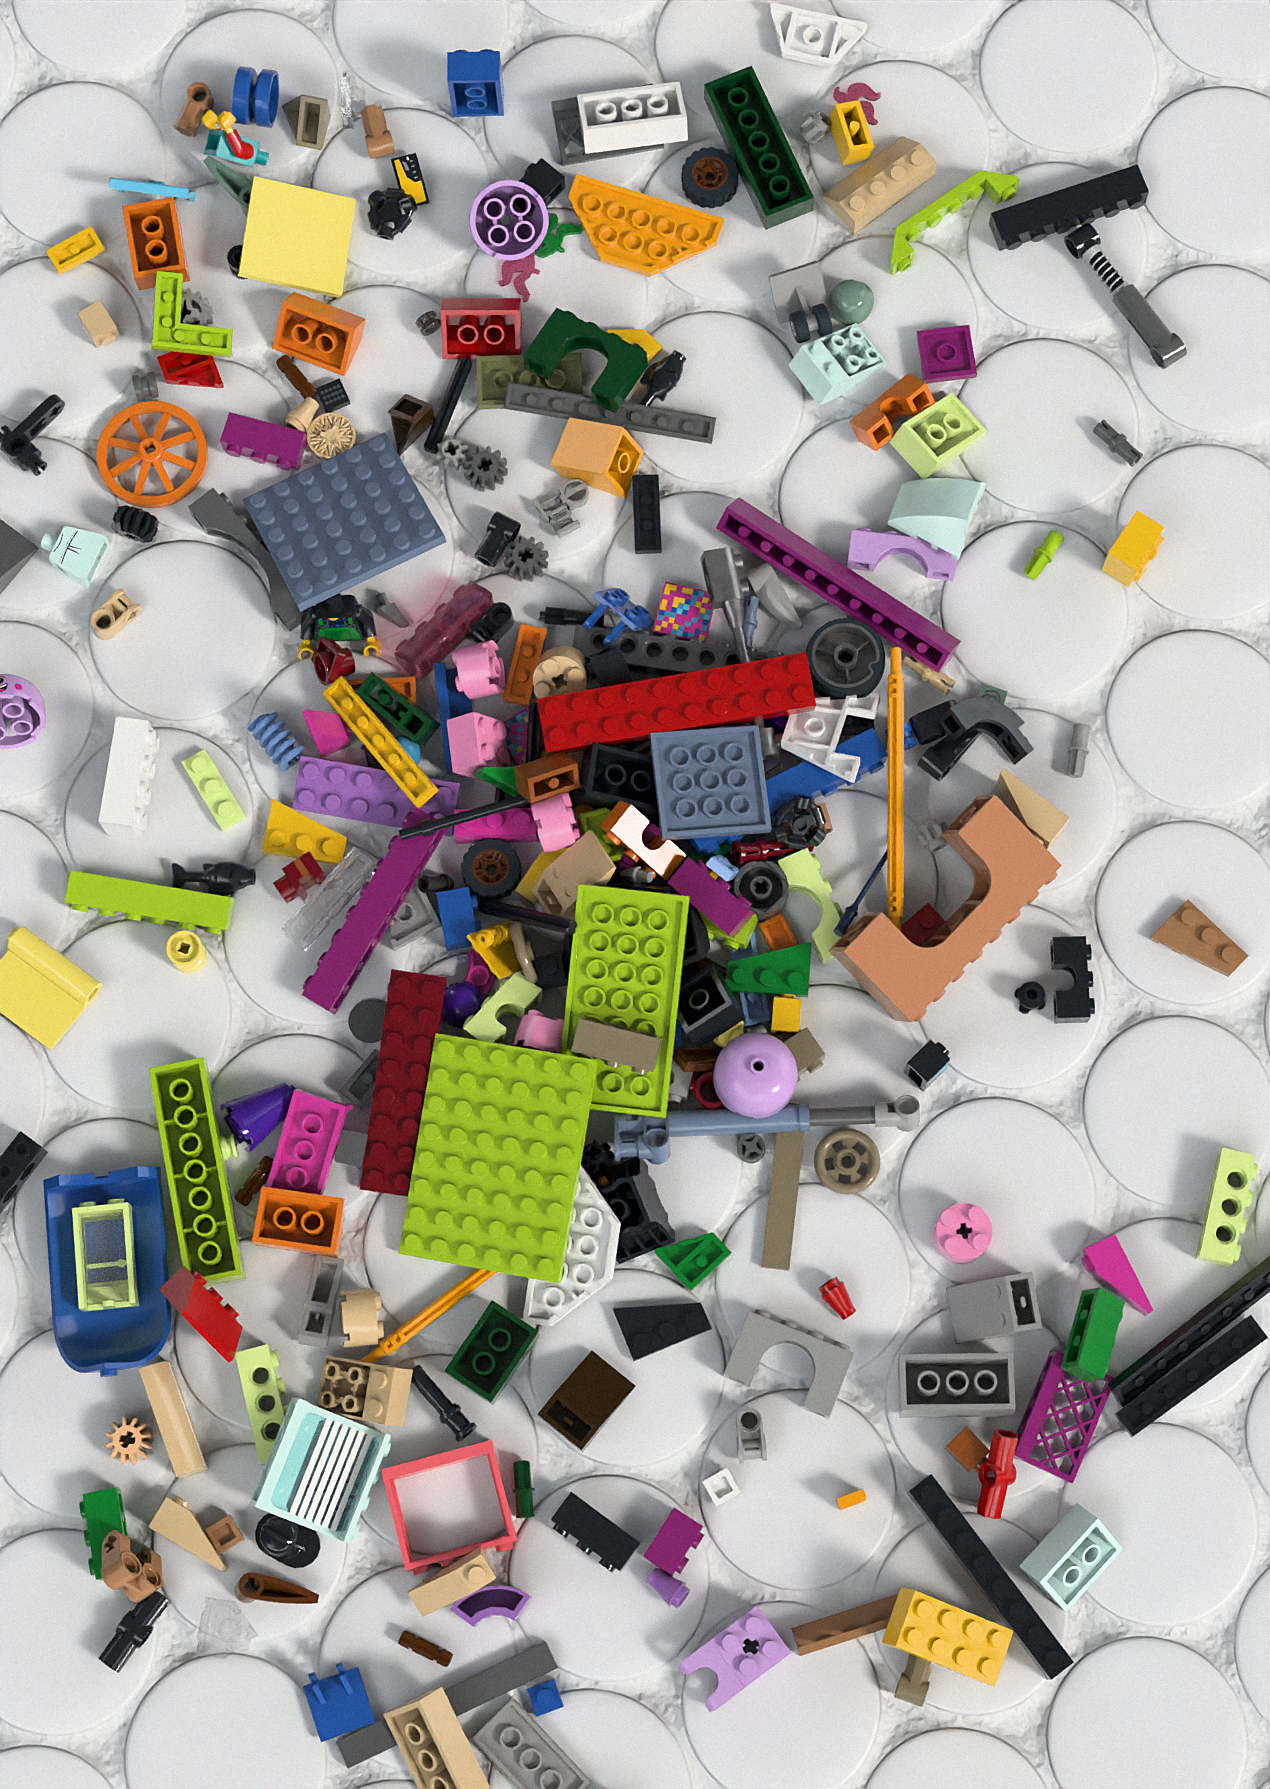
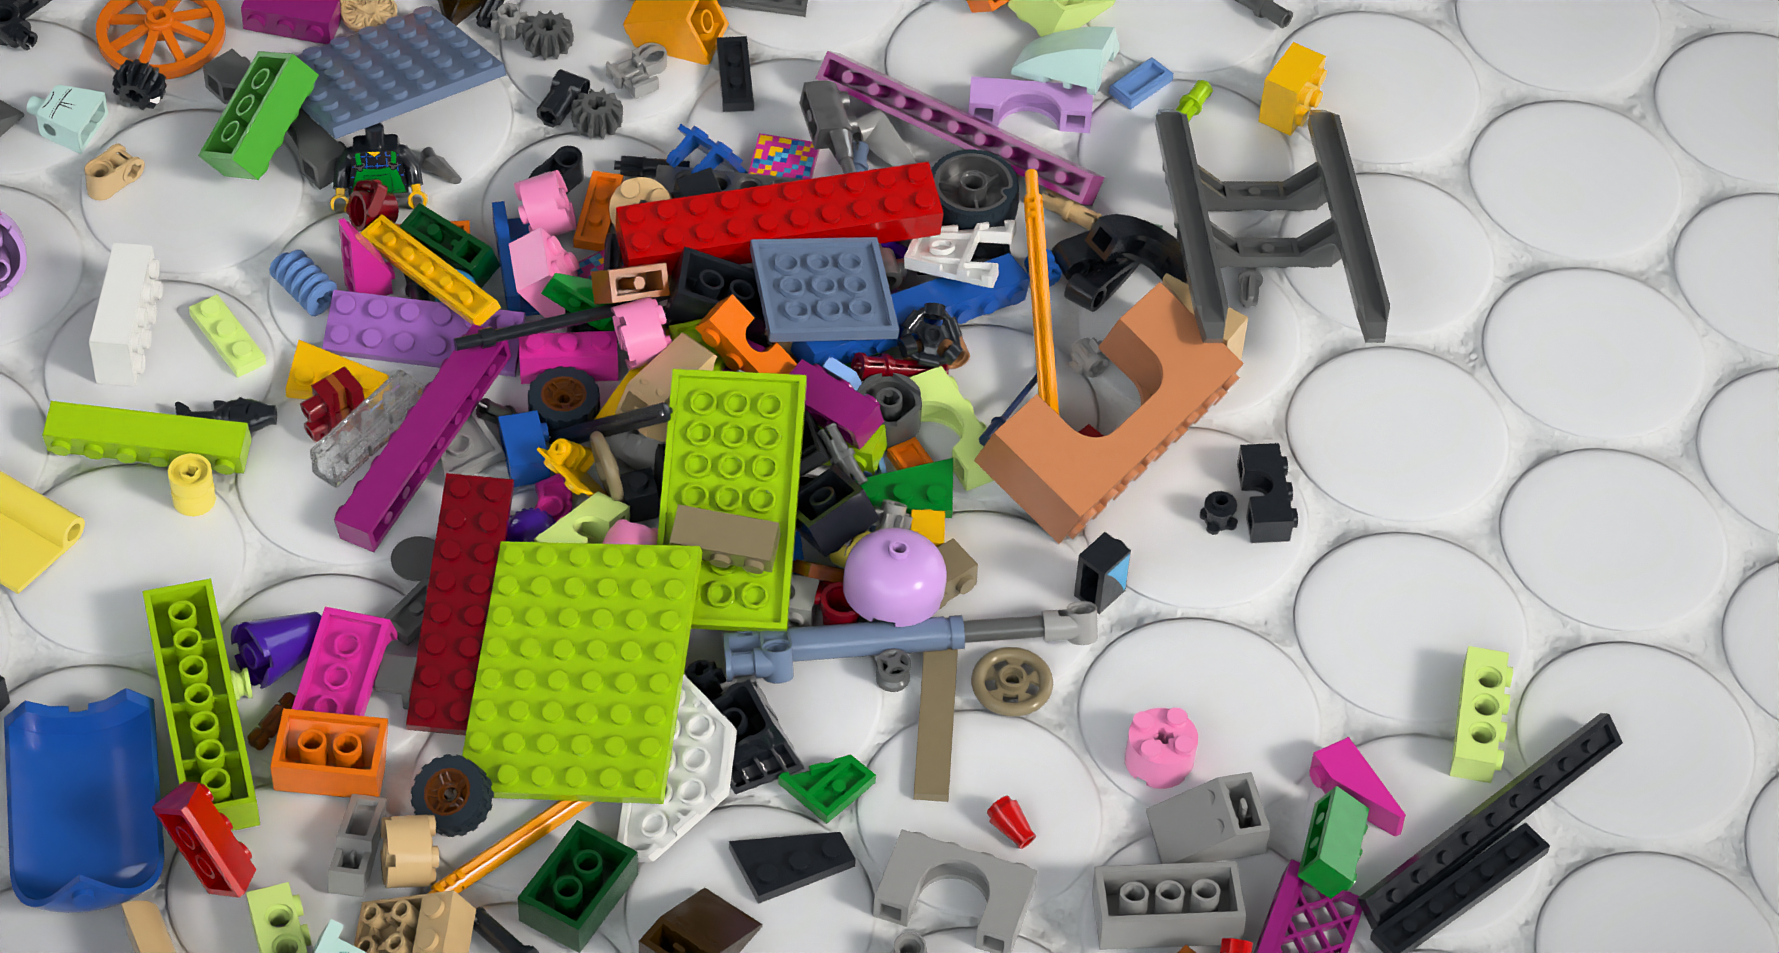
camera: 10 degrees left, 25 degrees down
(105, 1255) = (80, 796): door -> none
(235, 574) = (258, 115): none -> bright green brick
(388, 1278) = (436, 785): none -> black wheel
(444, 631) = (496, 178): clear pink slope -> none
(718, 950) = (841, 454): none -> dark grey pin
(756, 1006) = (892, 515): none -> light grey gear
(1001, 527) = (1141, 83): none -> medium blue tile
(1042, 728) = (1209, 247): none -> dark grey piece
(1199, 938) = (1410, 451): medium nougat wing -> none

